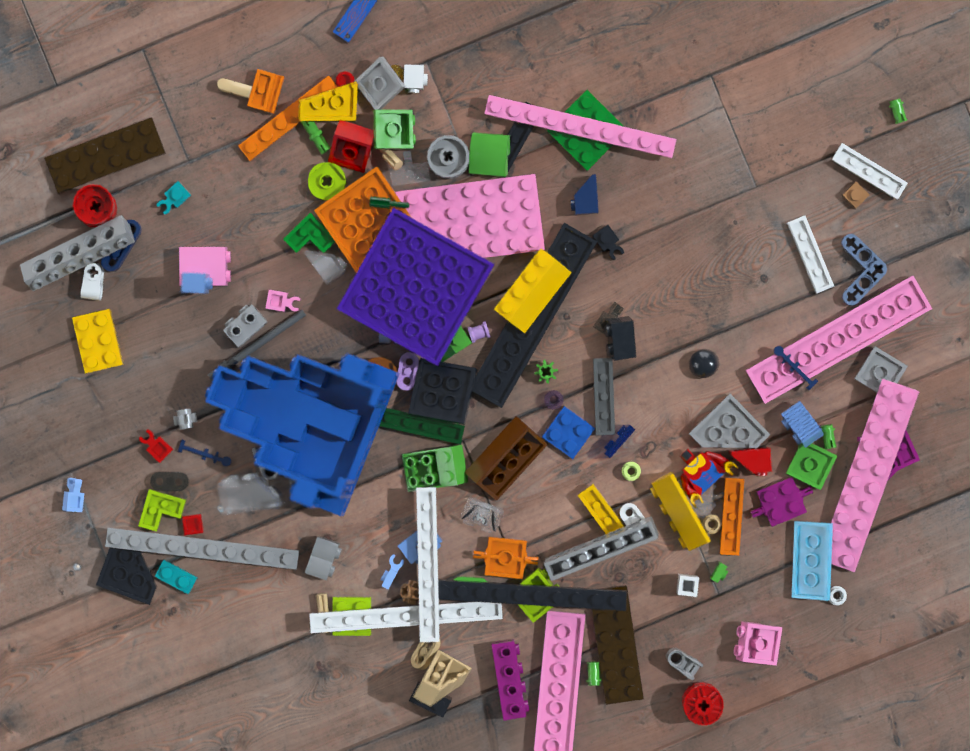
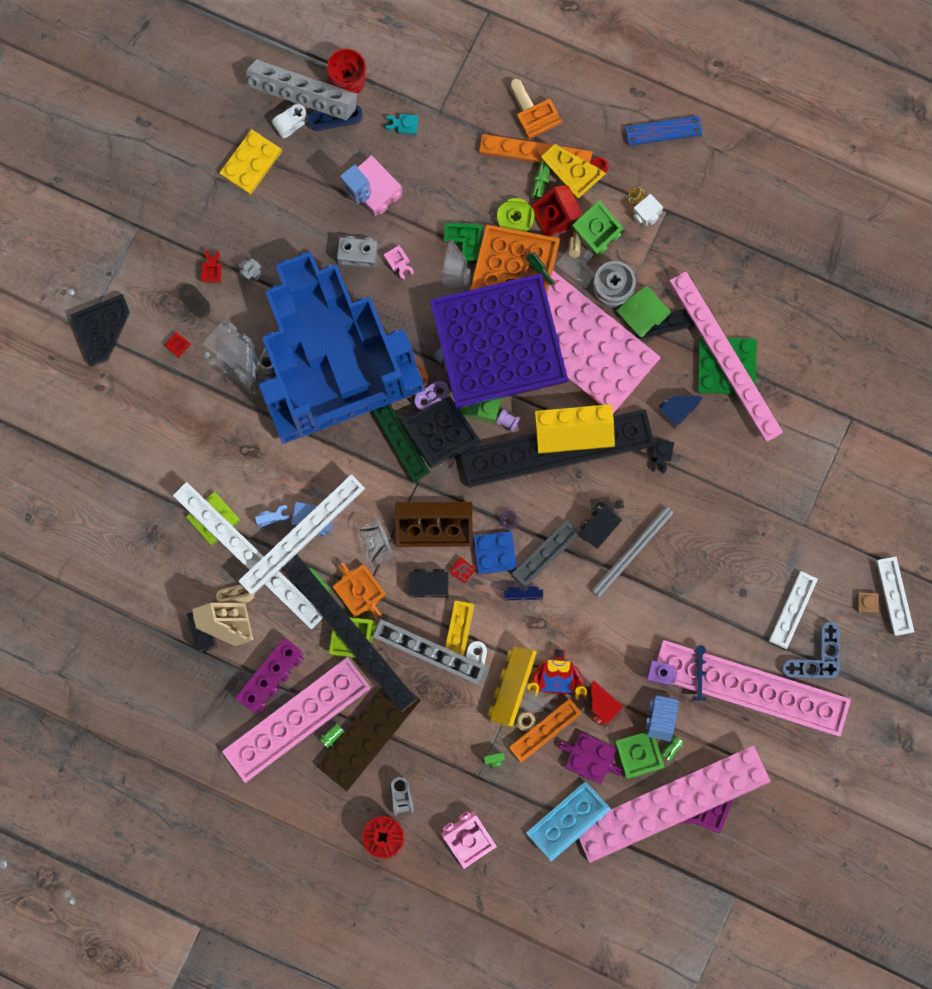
camera: 55 degrees right, 10 degrees down
(74, 498) = (119, 244): light blue plate -> none
(105, 155) = (390, 51): dark brown plate -> none
(158, 504) = (169, 307): lime plate -> none
(176, 576) = (128, 367): teal plate -> none
(202, 548) = (166, 366): light grey plate -> none
(226, 461) = (246, 328): dark blue piece -> none
(260, 342) = (367, 277): dark grey bar -> none
(322, 558) = (237, 458): light grey brick -> none
(322, 603) = (202, 489): tan axle -> none
(379, 83) = (620, 189): light grey plate -> none
(410, 592) = (268, 542): medium nougat gear -> none
(435, 468) = (380, 478): bright green slope -> none
(545, 366) = (528, 490): bright green gear -> none
(547, 502) = (429, 584): none -> black brick
(559, 468) = (462, 570): none -> red tile
(626, 466) = (509, 618): yellowish green plate -> none
(660, 331) = (632, 551): none -> light grey axle
(687, 585) = (463, 743): white brick -> none
(704, 363) = (639, 605): black hair -> none
(729, 427) = (610, 666): light grey plate -> none
(770, 396) = (661, 674): none -> medium lavender brick
(841, 599) = (554, 871): white plate -> none
(879, 366) = (760, 735): light grey plate -> none

